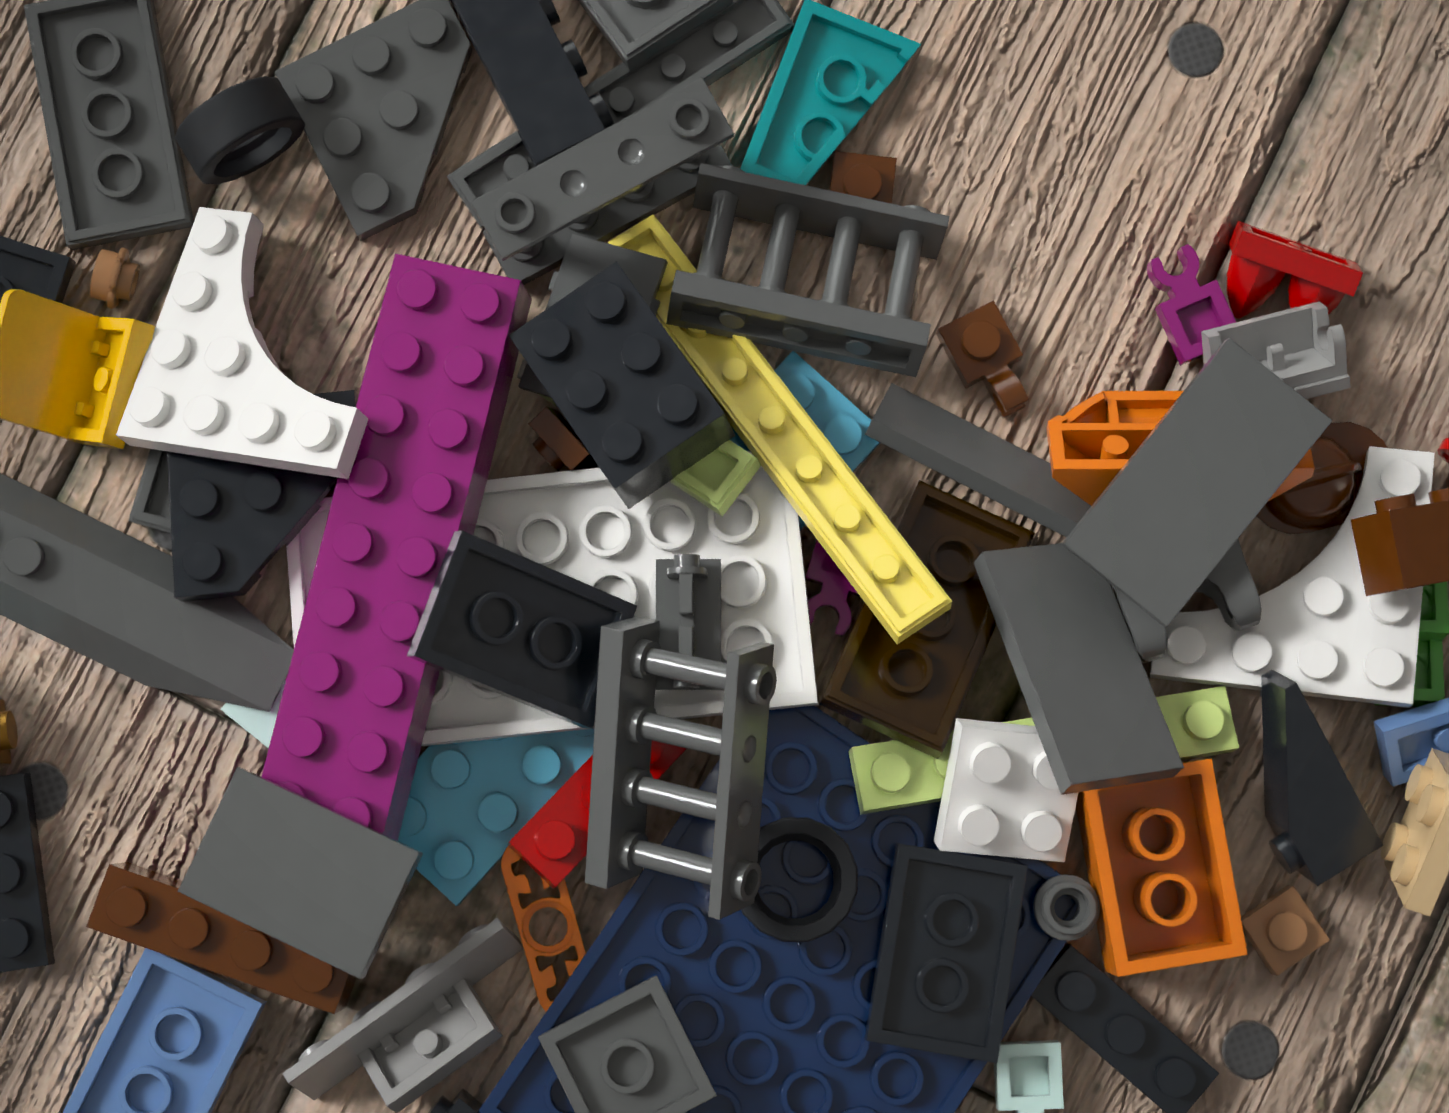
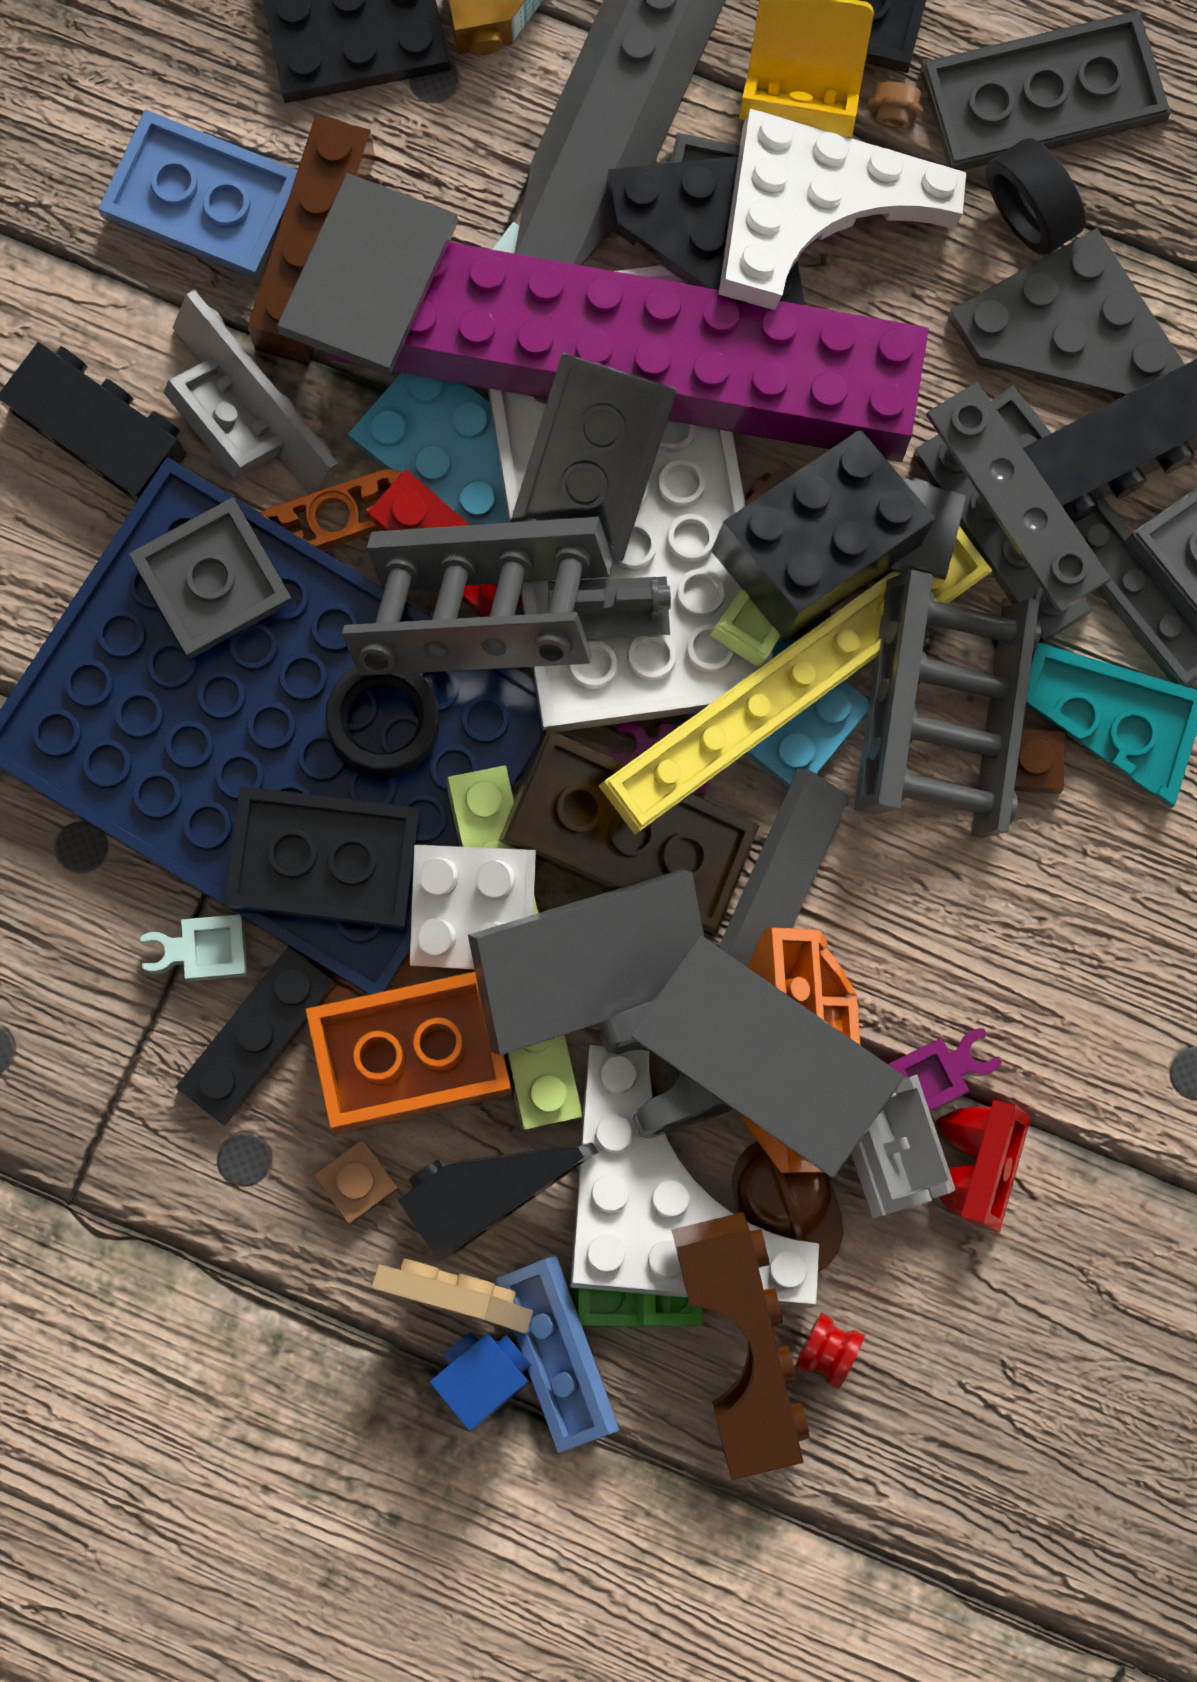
camera: 90 degrees right, 5 degrees down
(983, 351) = (885, 880): reddish brown plate -> none
(1086, 907) = (367, 949): dark grey plate -> none

